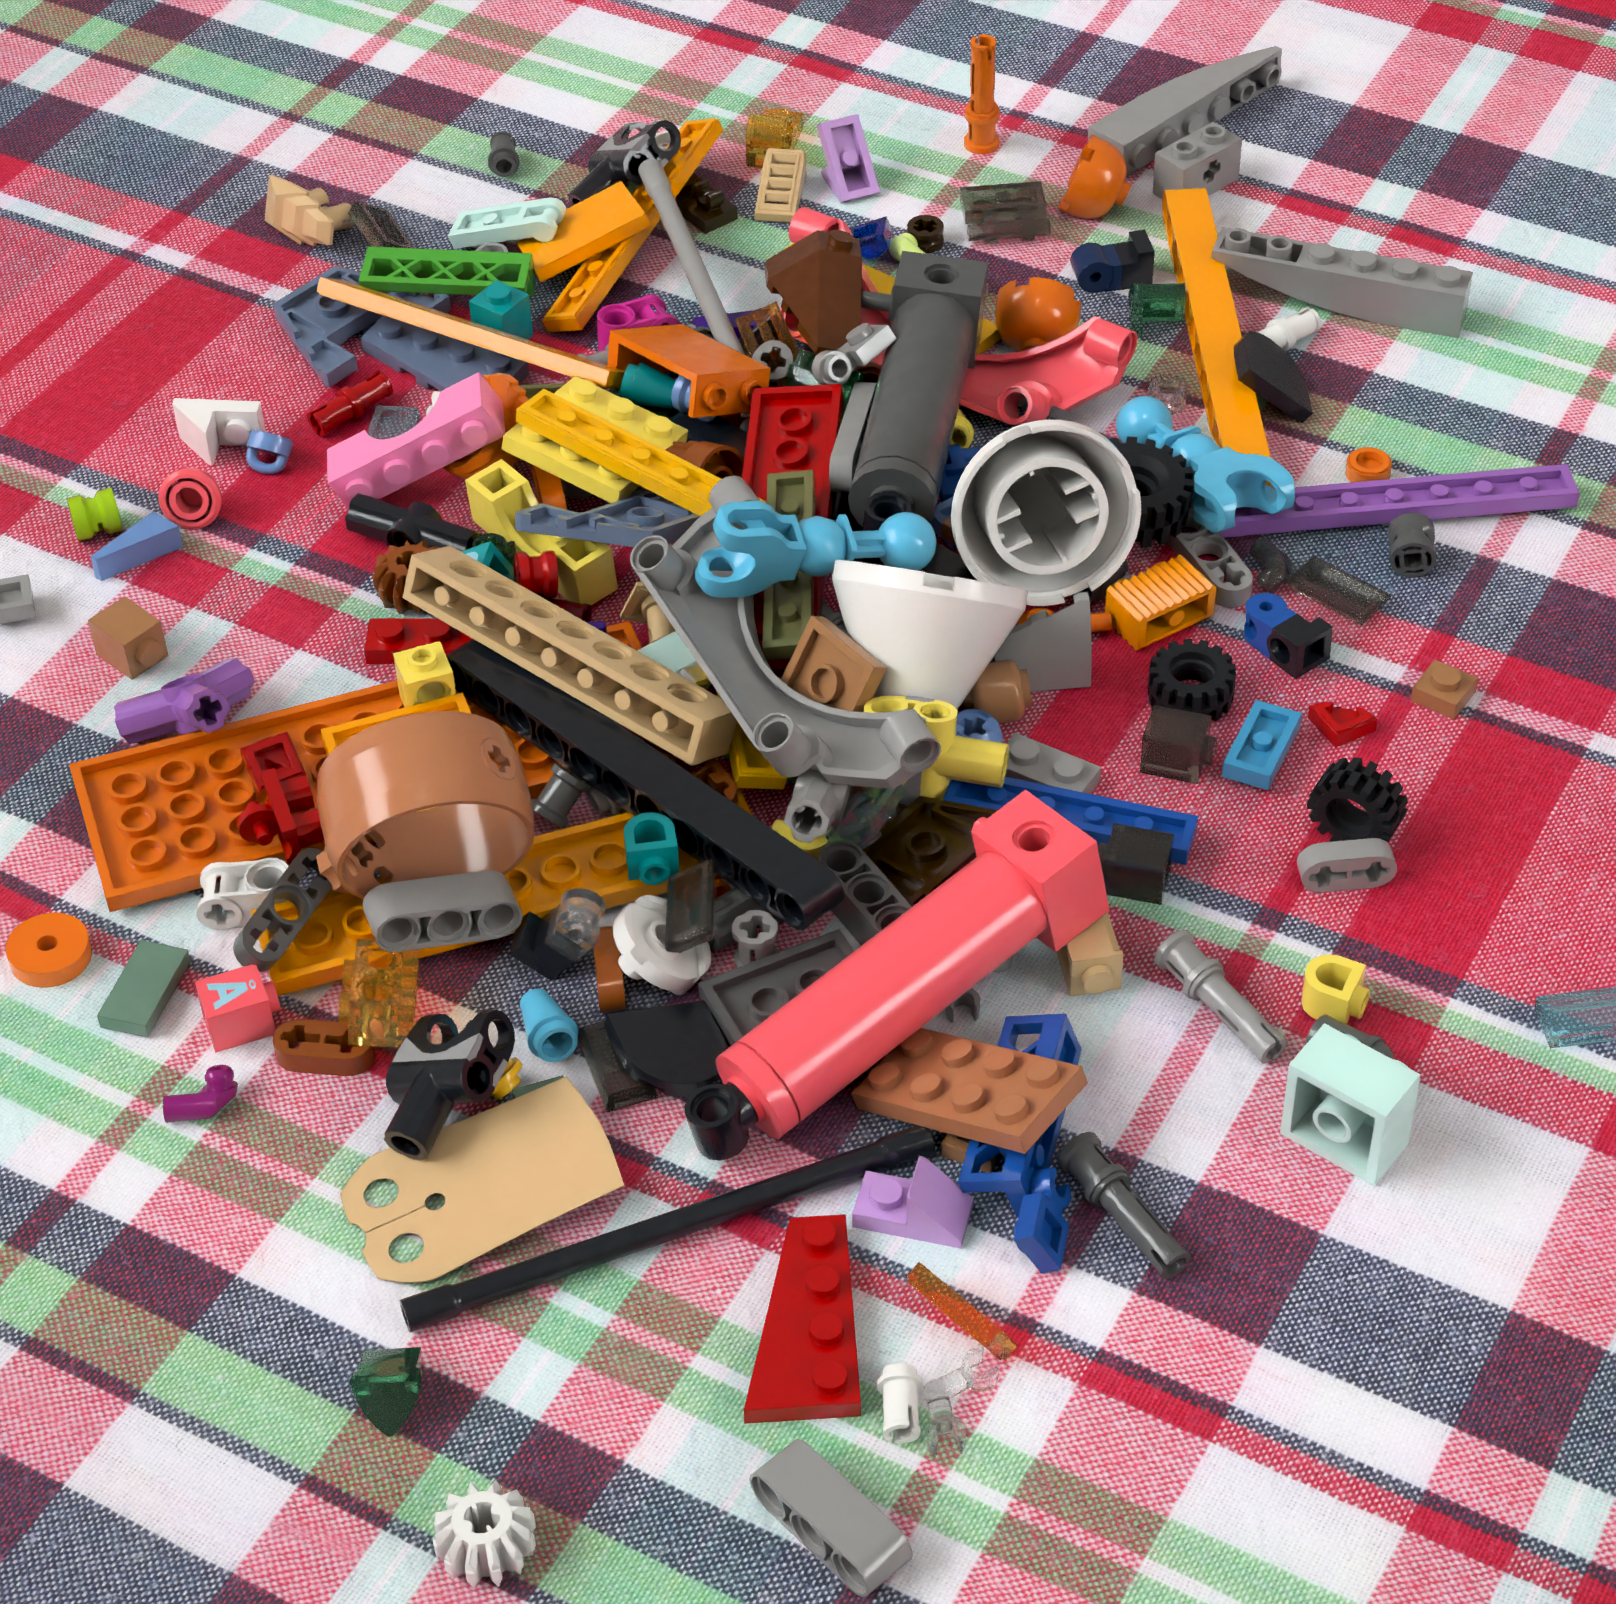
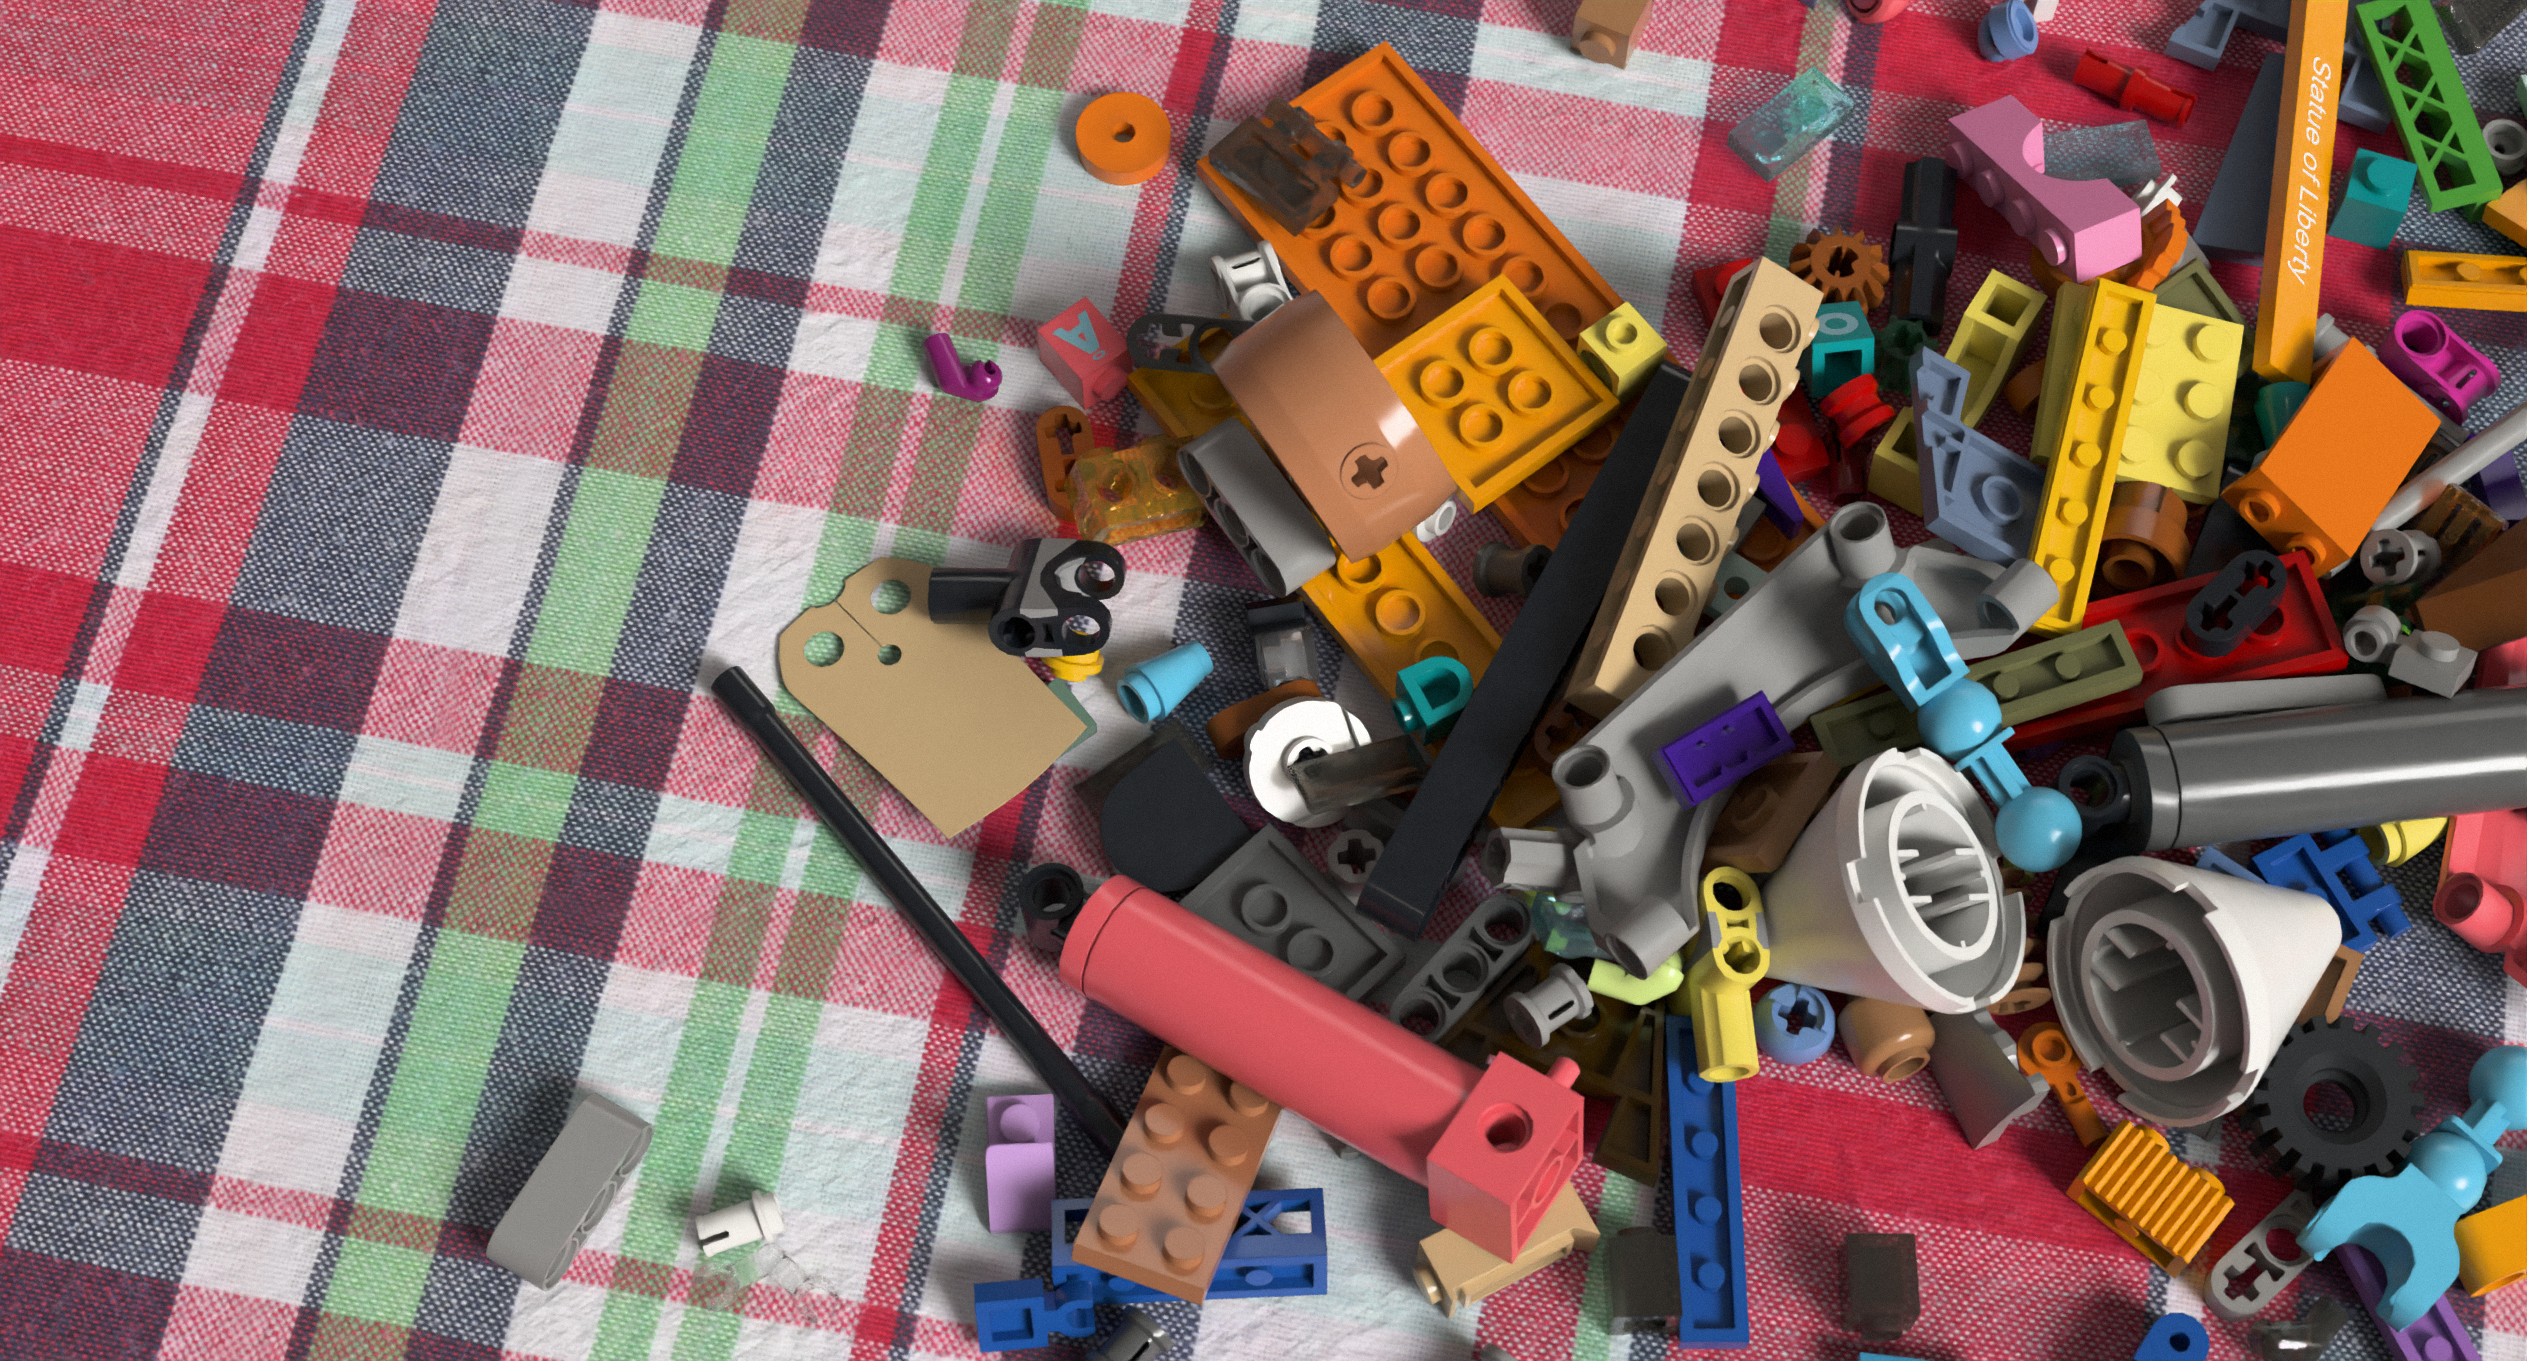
camera: 70 degrees right, 20 degrees up
(144, 988) = (1097, 253): sand green tile -> none
(150, 836) = (1279, 178): none -> clear smoke plate
(185, 703) = (1516, 122): medium lavender piece -> none
(264, 821) = (1356, 278): red hips -> none
(270, 753) = (1440, 246): red tile -> none
(275, 572) = (1790, 124): none -> clear light blue plate
(388, 1386) = (632, 692): clear green tile -> none
(484, 1534) = (446, 845): white gear -> none
(772, 426) = (2244, 612): none -> black beam
(781, 675) = (1722, 750): none -> dark purple plate
(808, 1338) = (817, 1100): red wing -> none
(917, 802) = (1617, 983): none -> yellowish green arm
(923, 850) = (1548, 1005): none -> light grey bush
(961, 1312) = (874, 1255): clear orange tile -> none
(1049, 766) = (1785, 1131): light grey plate -> none
(1192, 663) = (2036, 1246): black tyre -> none

